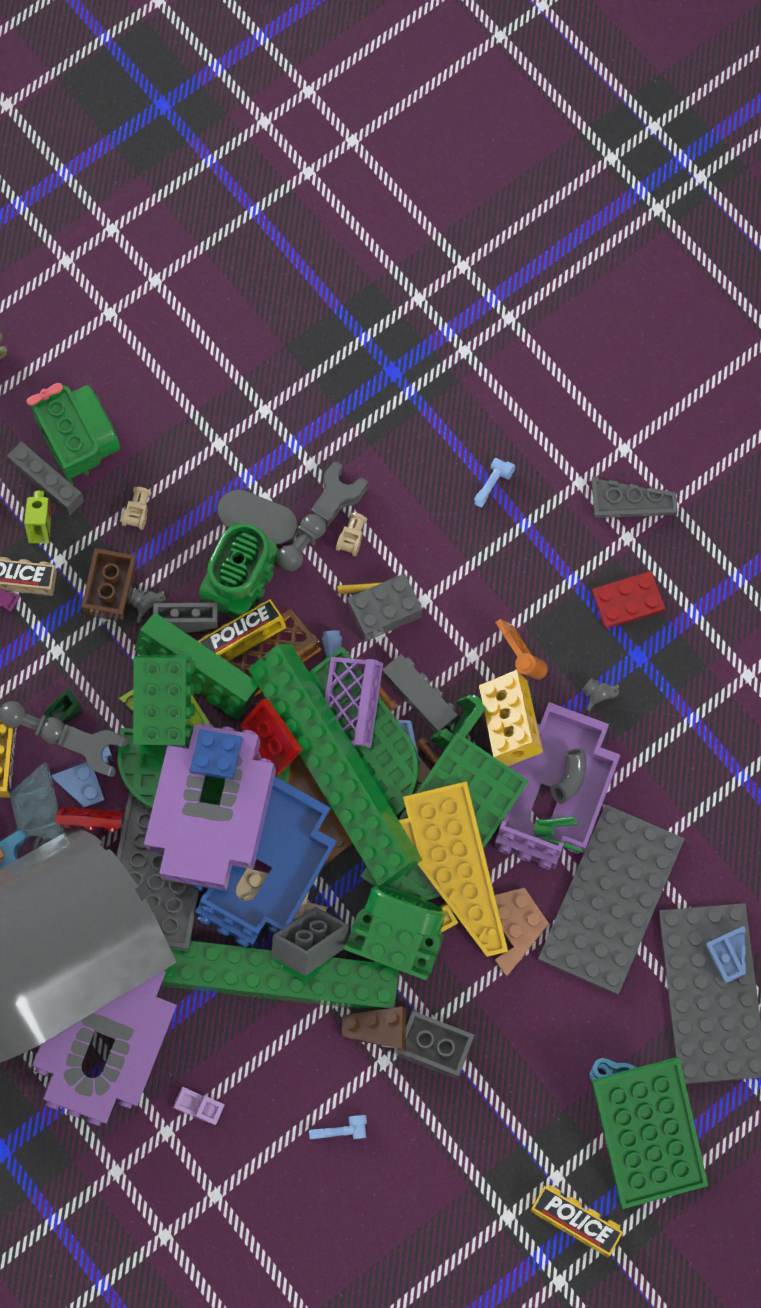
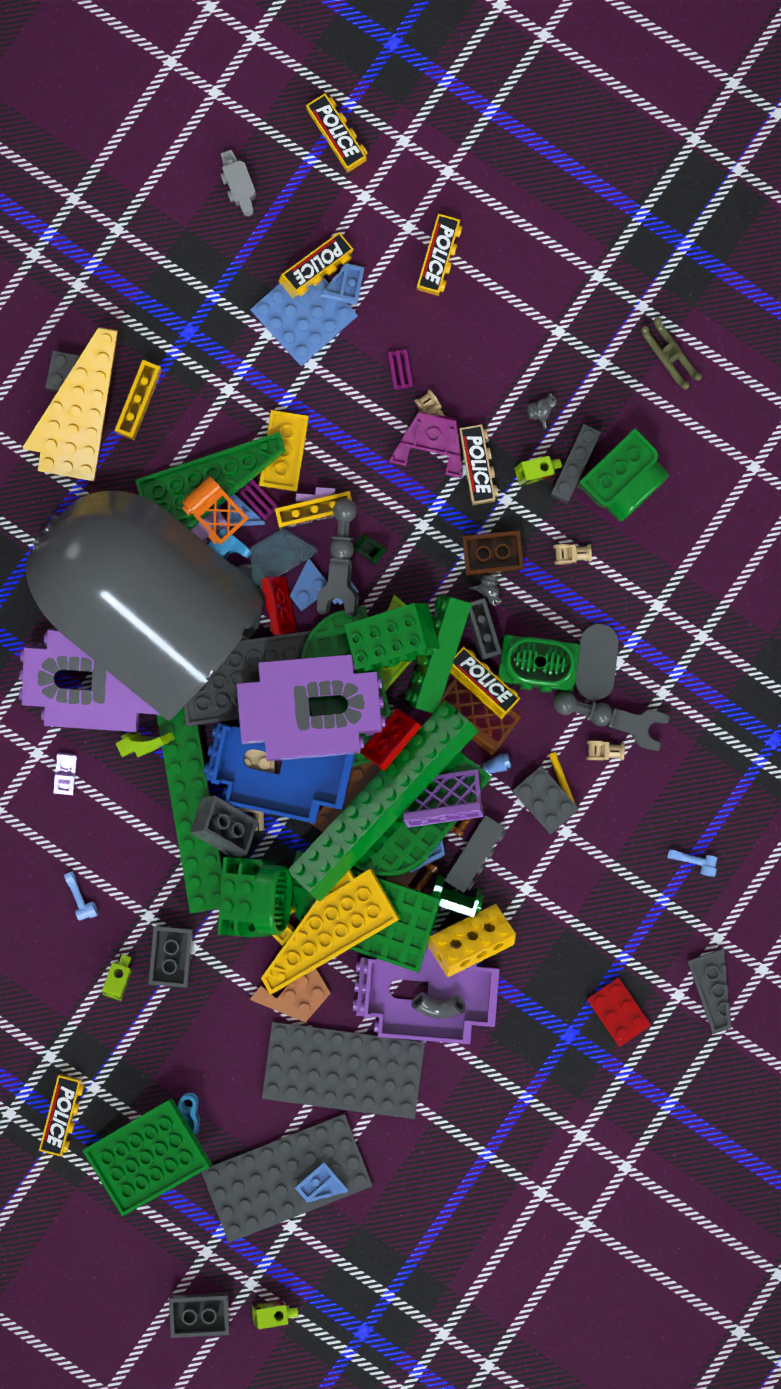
camera: 75 degrees right, 15 degrees up
(44, 394) = (643, 441): coral piece -> none
(193, 1007) = (141, 744): none -> lime slope
(216, 754) = (353, 699): blue plate -> none
(377, 1027) = (170, 904): reddish brown wing -> none
(449, 1117) = (114, 986): none -> lime torso
(525, 662) = (529, 941): orange piece -> none
(545, 828) = (385, 998): green plant -> none
(599, 692) = (524, 1009): dark grey animal -> none

